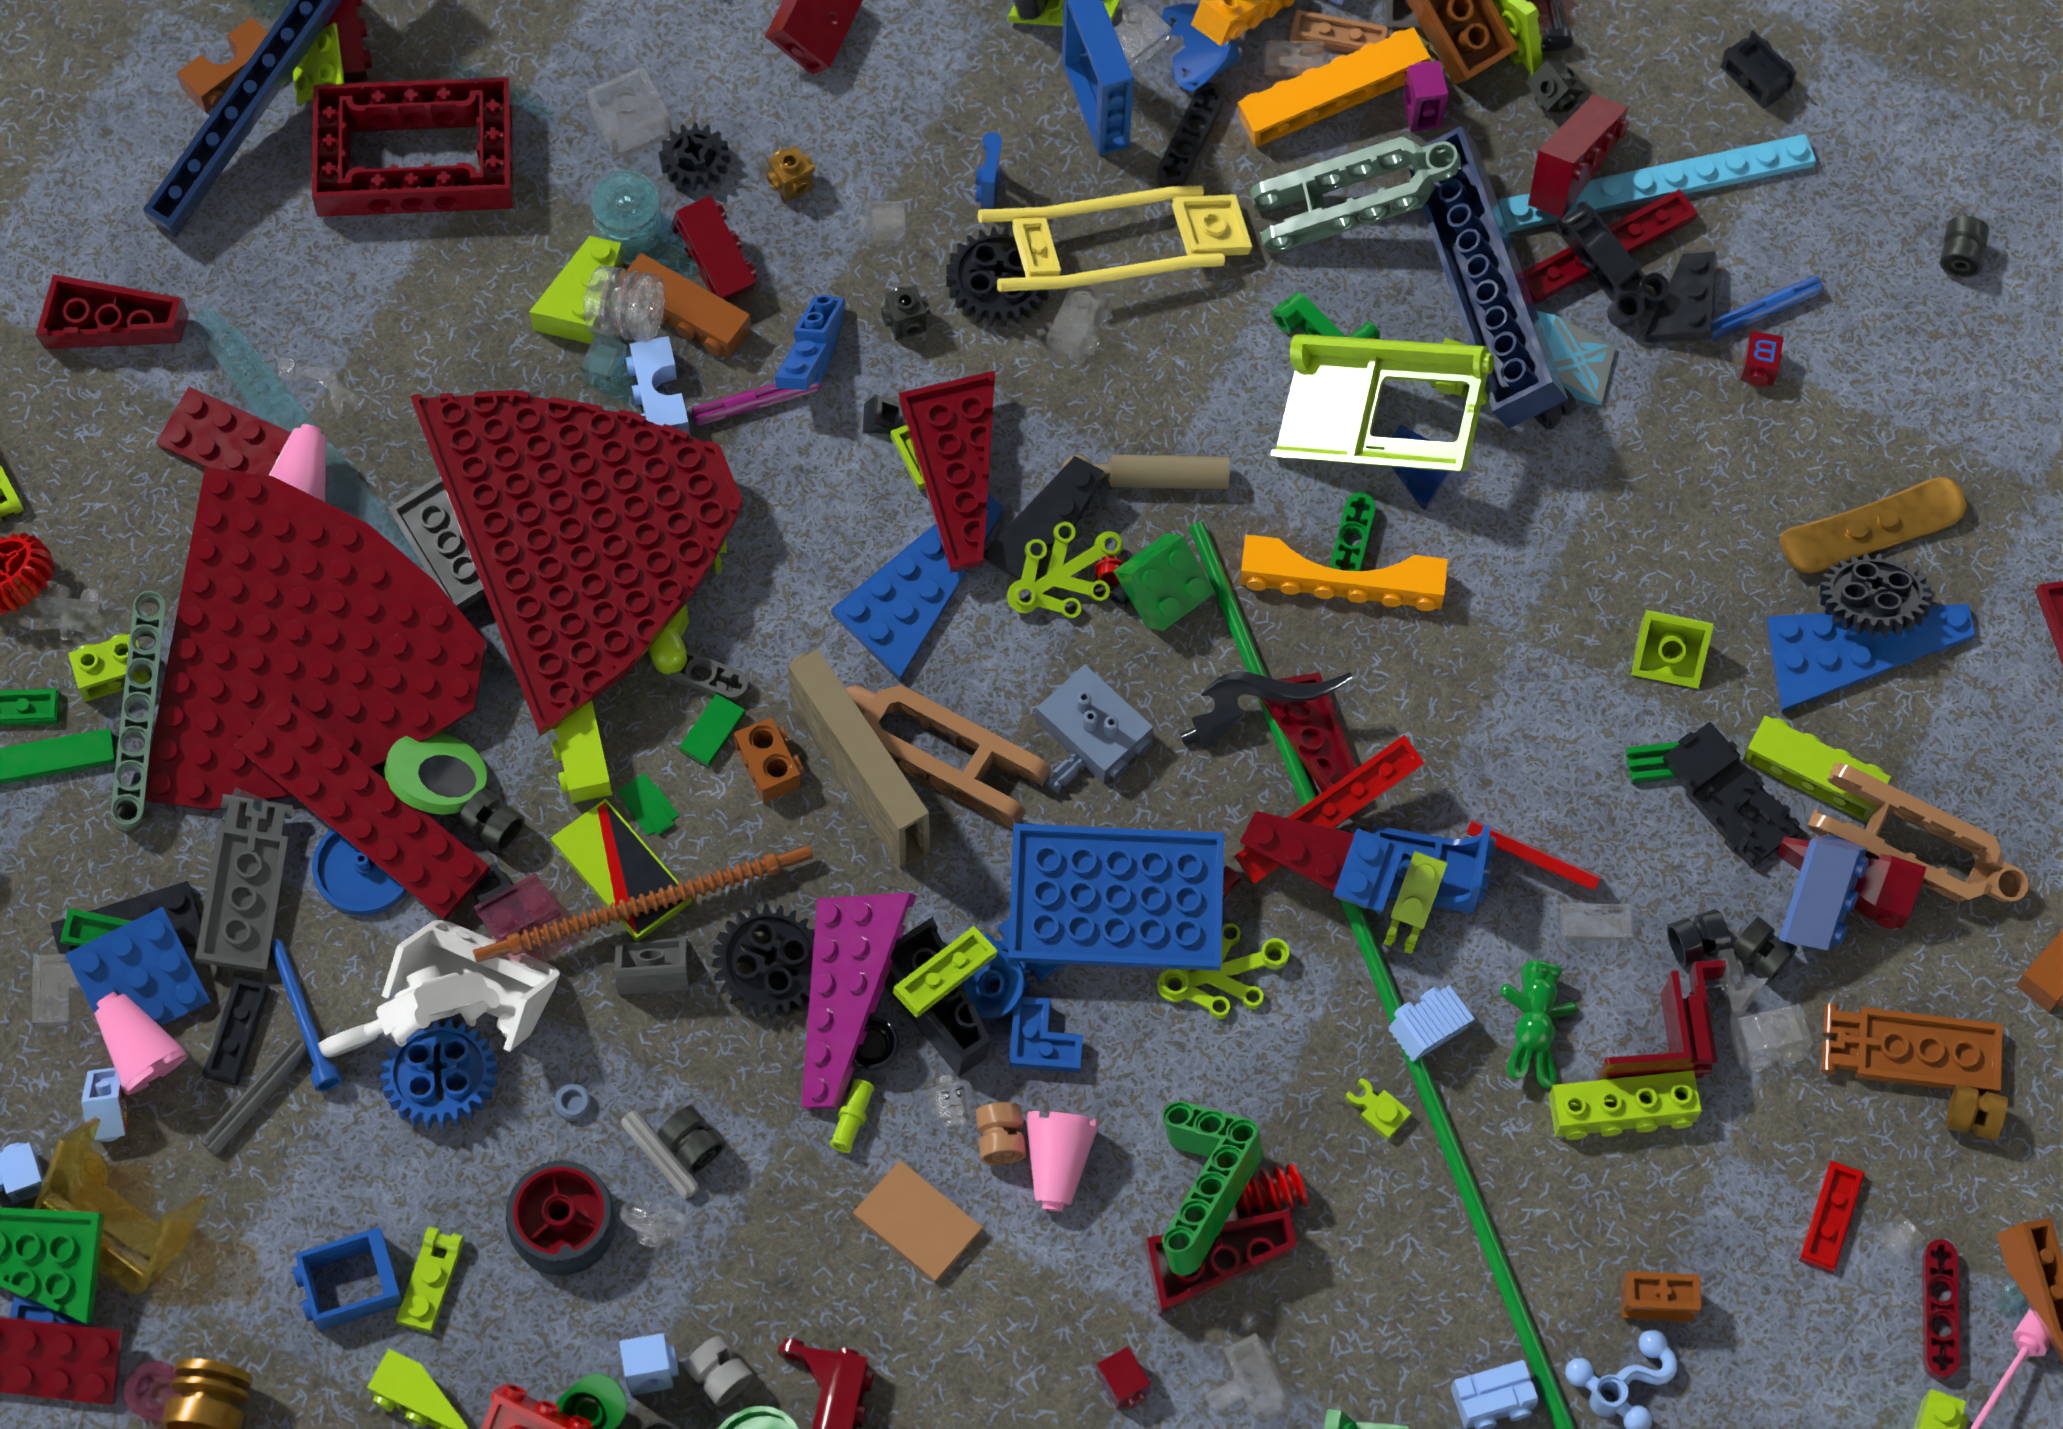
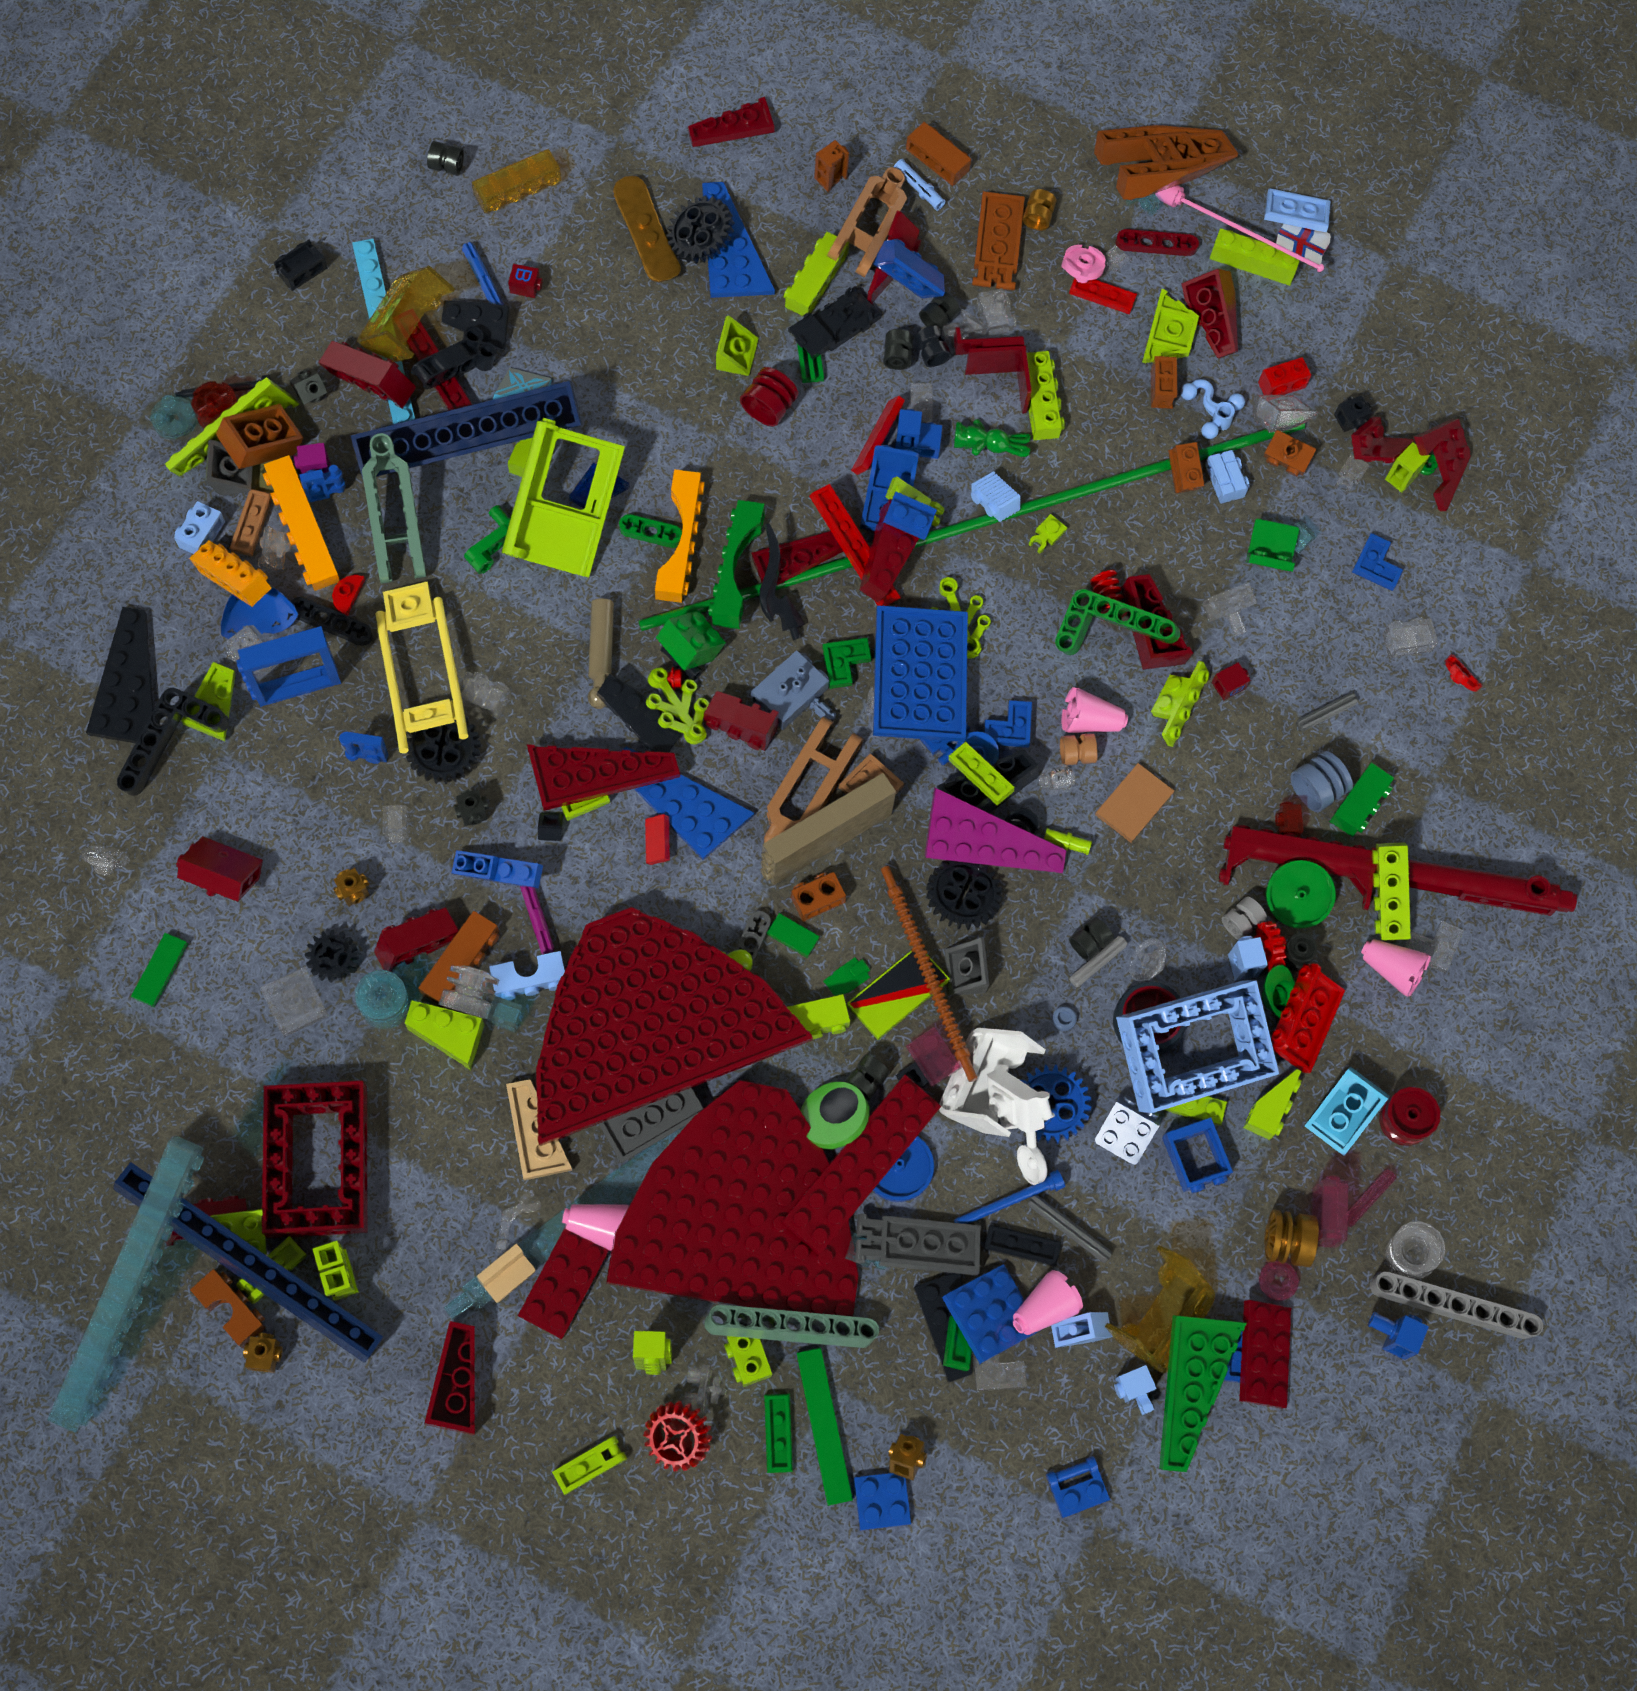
camera: 95 degrees left, 5 degrees up
(111, 524) = (651, 1351): none -> lime brick
(166, 103) = (266, 1361): none -> pearl gold brick
(244, 369) = (506, 1273): none -> tan panel
(257, 179) = (338, 1275): none -> lime hips
(287, 122) = (287, 1255): none -> lime plate
(397, 415) = (534, 1159): none -> tan wing
(399, 1184) = (1128, 1130): none -> bracket
(452, 1284) = (1250, 1032): none -> light blue brick
(665, 1399) = (1273, 944): none -> red gear
(859, 549) = (657, 839): none -> red tile
(959, 838) = (867, 770): none -> medium nougat plate
(1041, 656) = (741, 721): none -> dark red wedge
(1089, 1296) = (1178, 700): none -> lime bracket
(1144, 792) = (841, 655): none -> green plate
(1228, 631) = (746, 526): none -> green arch
(1233, 153) = (346, 593): none -> red plate
(1396, 113) = (320, 485): none -> blue plate
(1500, 1322) = (1186, 467): none -> dark orange hinge
(1532, 899) = (918, 436): none -> blue brick
(1582, 690) = (769, 396): none -> dark red wheel
(1671, 188) = (401, 311): none -> clear yellow windscreen
(1701, 885) = (898, 349): none -> pearl dark grey wheel
(1768, 1320) = (1171, 329): none -> lime wing
(1831, 1395) = (1215, 303): none -> dark red wedge
(1862, 1183) = (1084, 263): none -> bright pink plate
(1934, 341) = (516, 181): none -> clear yellow brick
(1996, 937) = (935, 199): none -> light blue pin
(2016, 784) = (831, 165): none -> dark orange hinge

